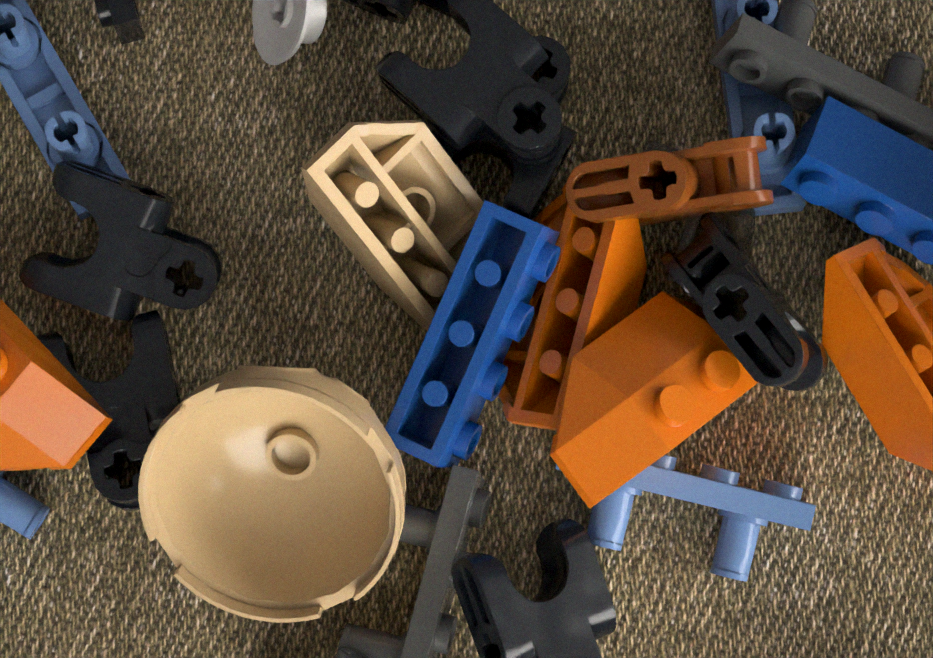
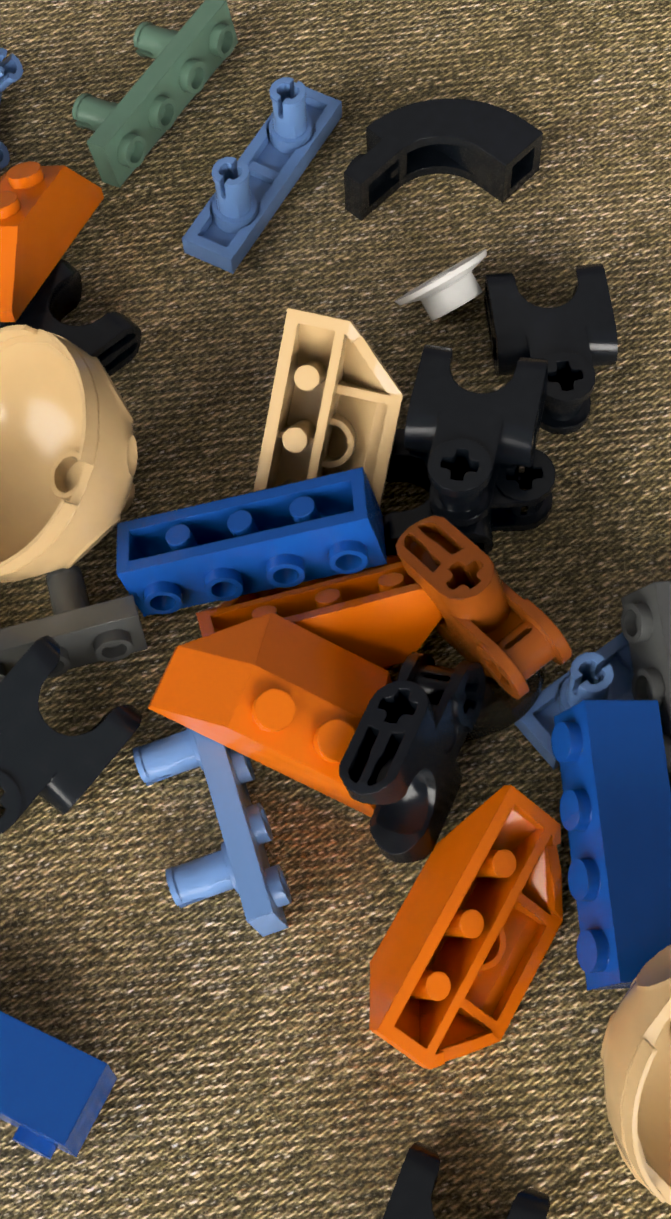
camera: 65 degrees right, 15 degrees down
(134, 249) = (174, 282): black piece -> none

